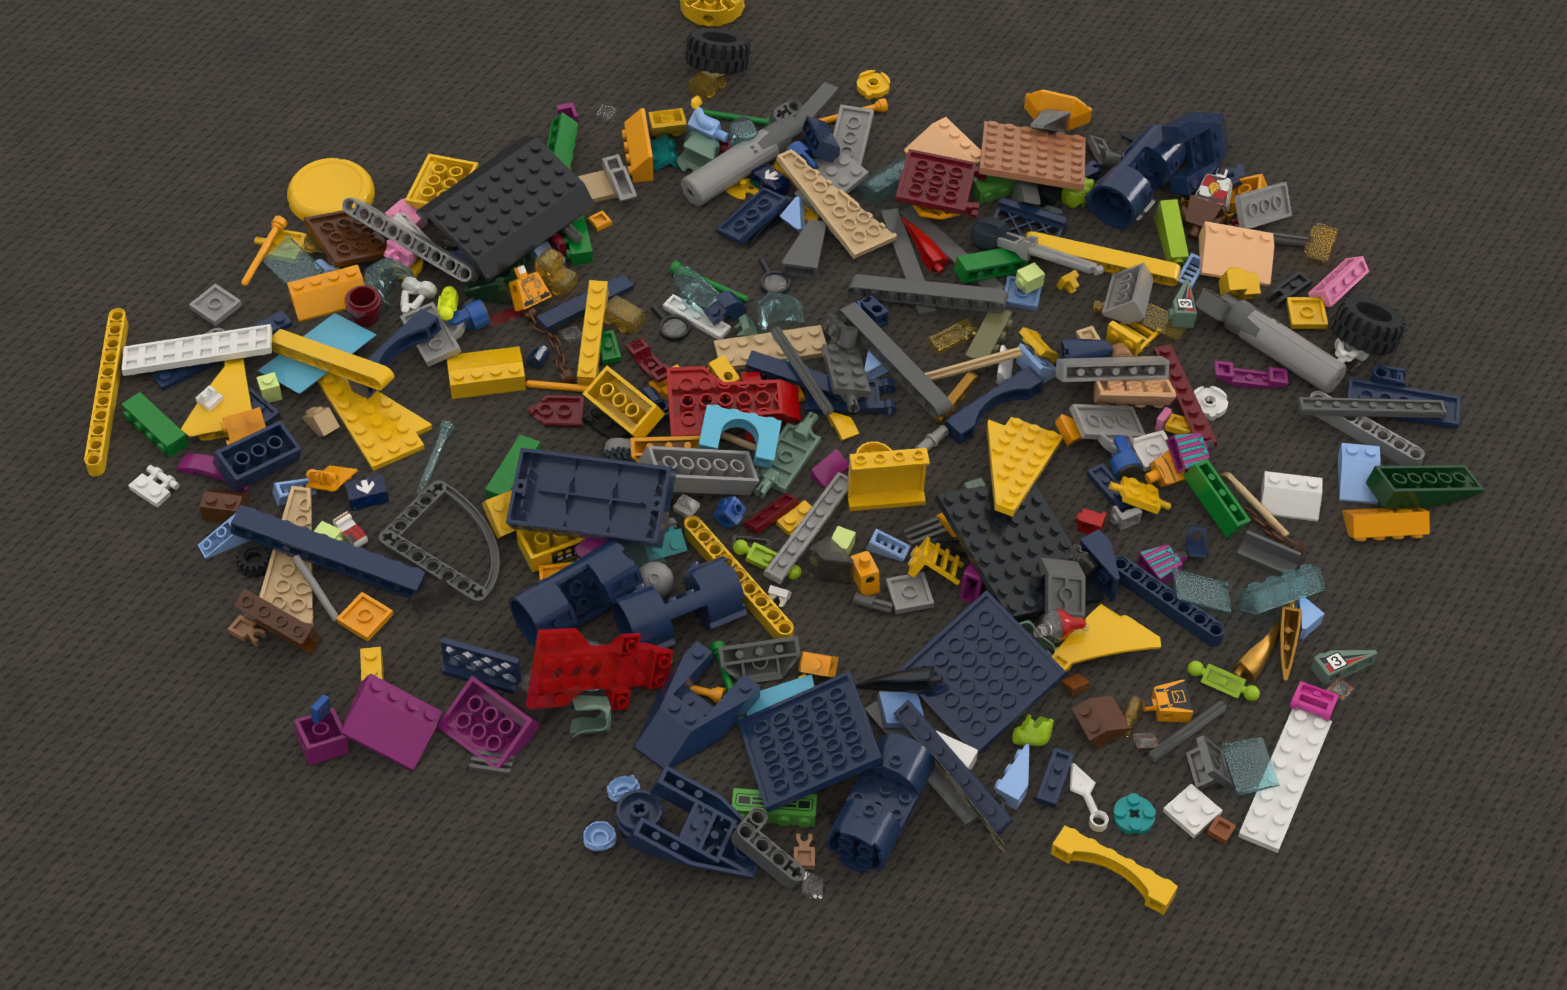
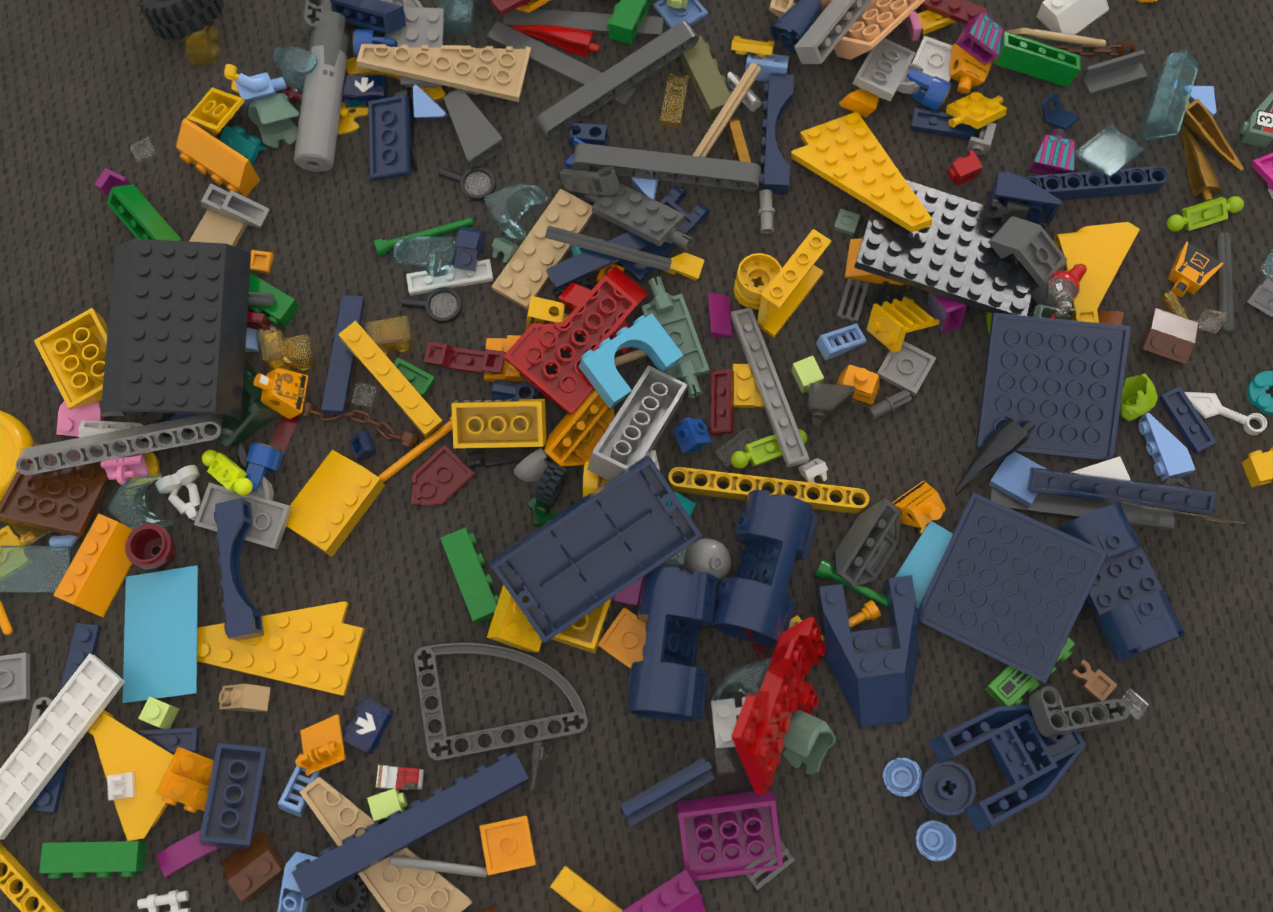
camera: 40 degrees left, 20 degrees up
(331, 360) = (192, 634): yellow beam -> none
(444, 430) = (365, 595): clear light blue piece -> none
(729, 116) = (296, 35): green piece -> none

